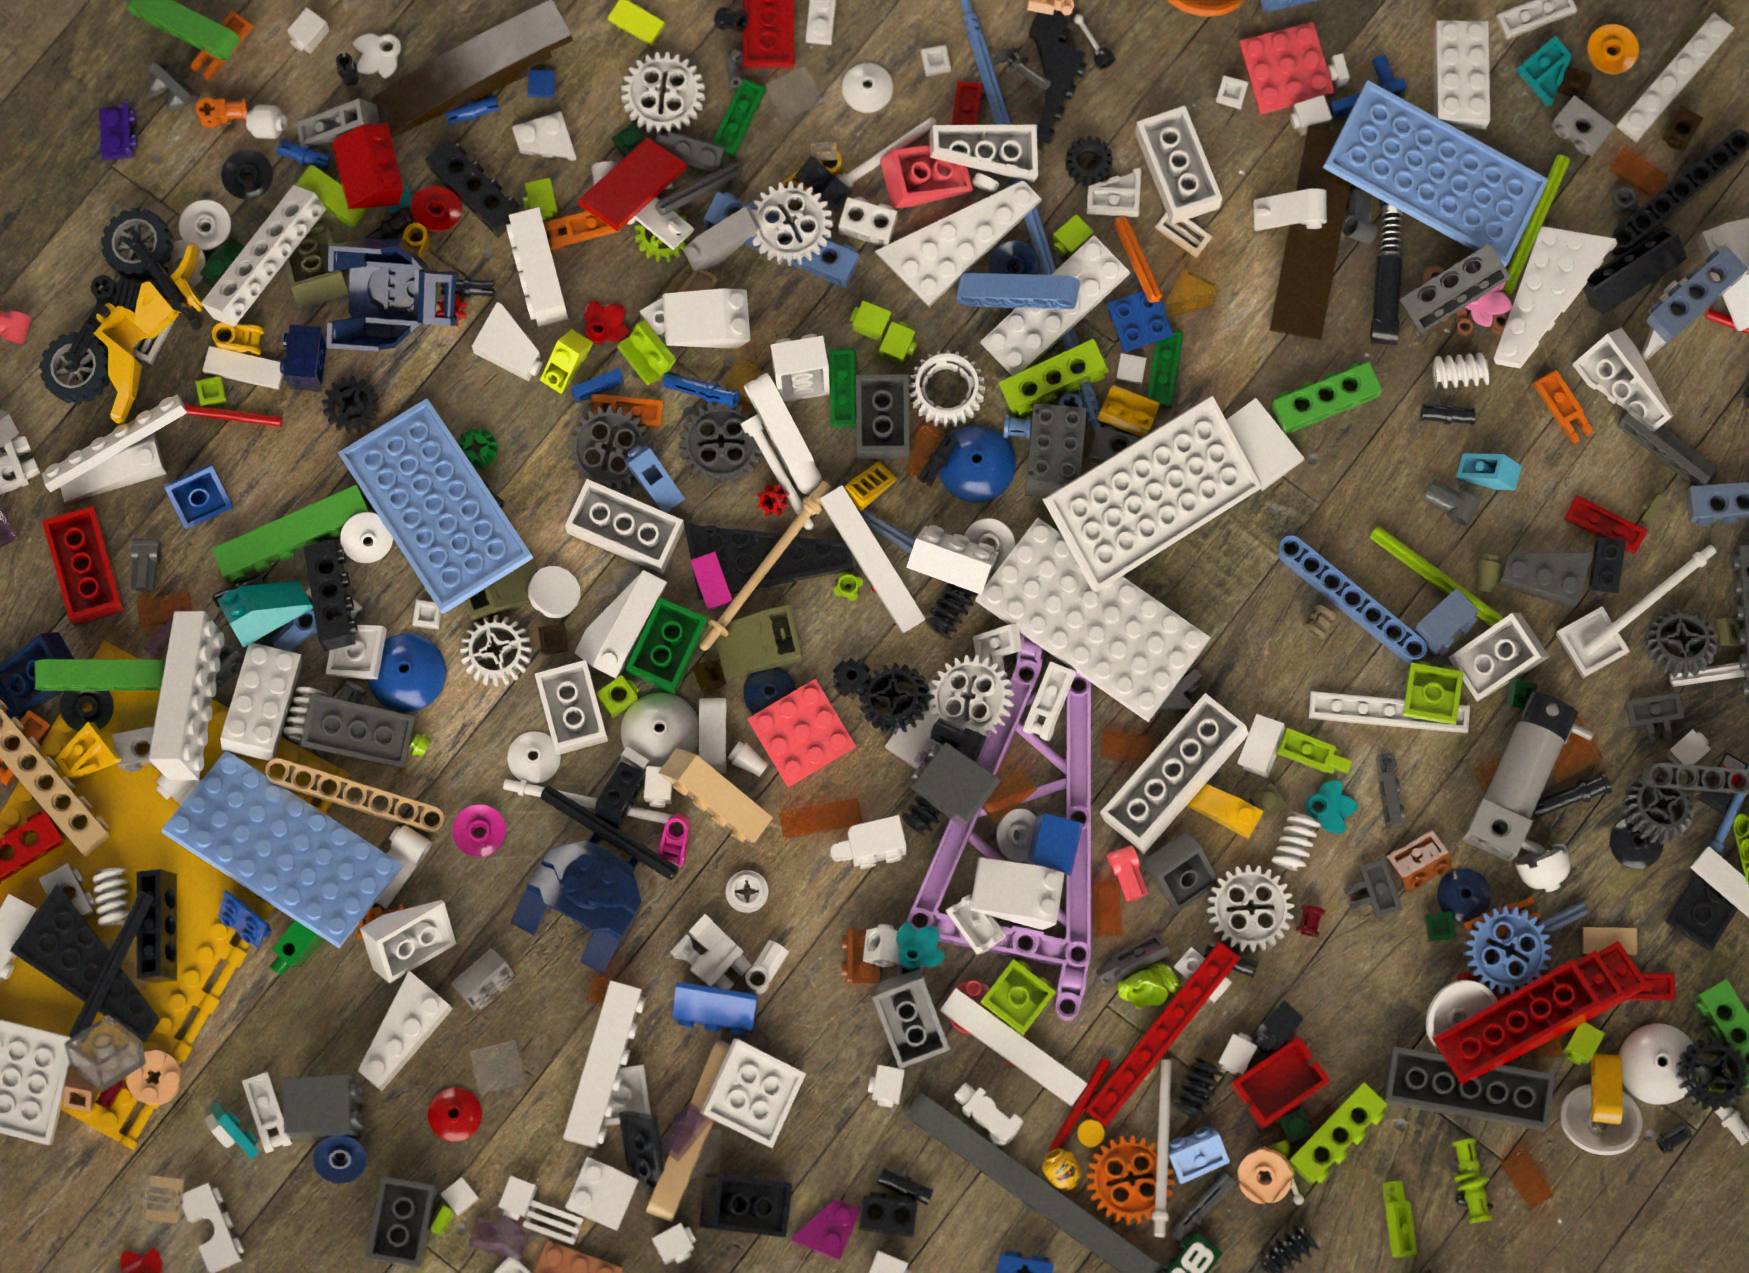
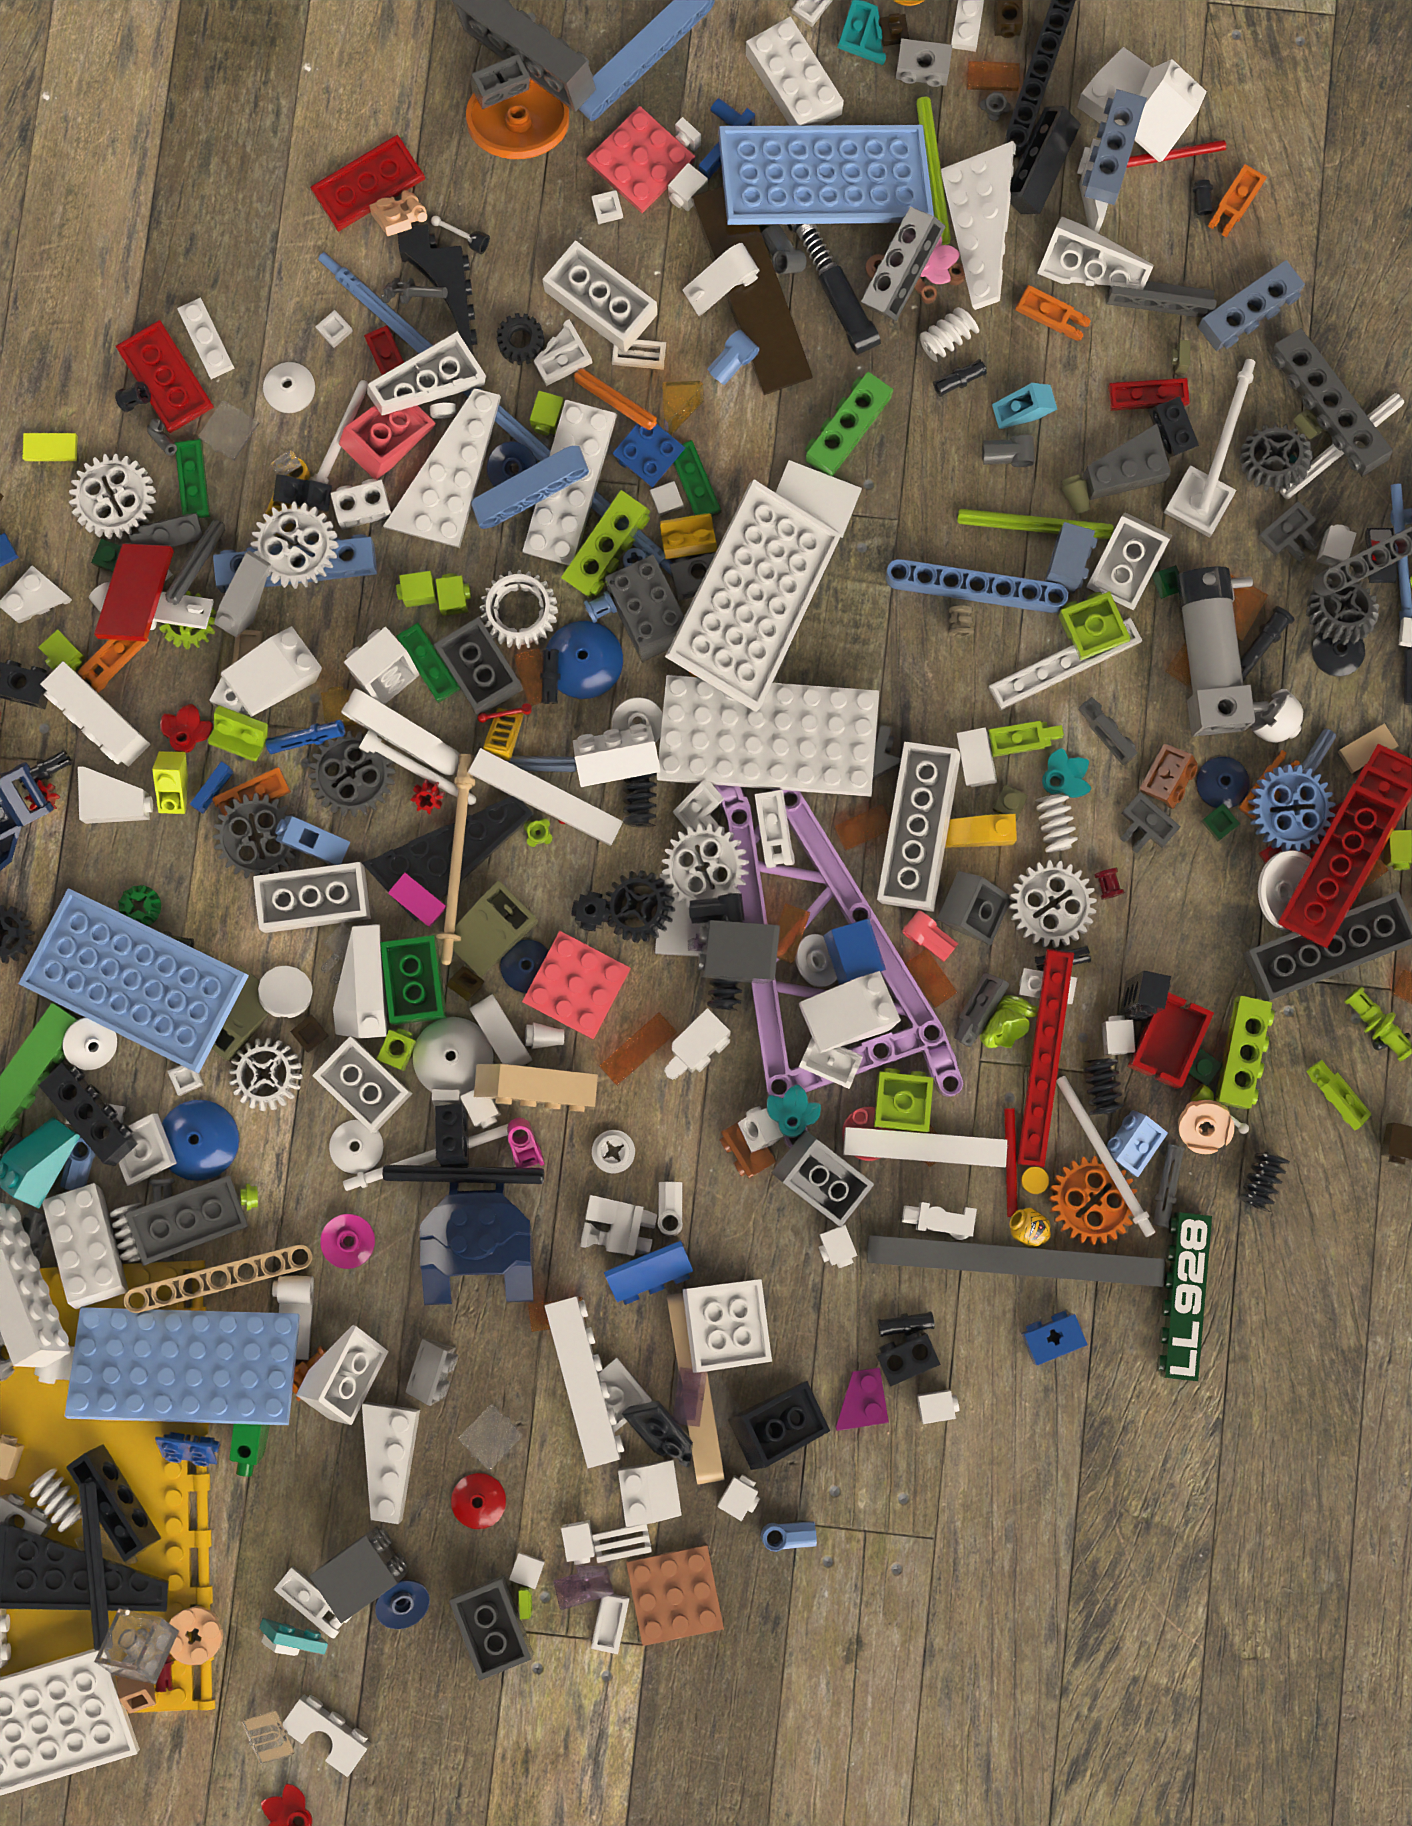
camera: 30 degrees left, 5 degrees up
(901, 475) = (525, 709): none -> red hinge
(1268, 281) = (738, 351): none -> medium blue piece

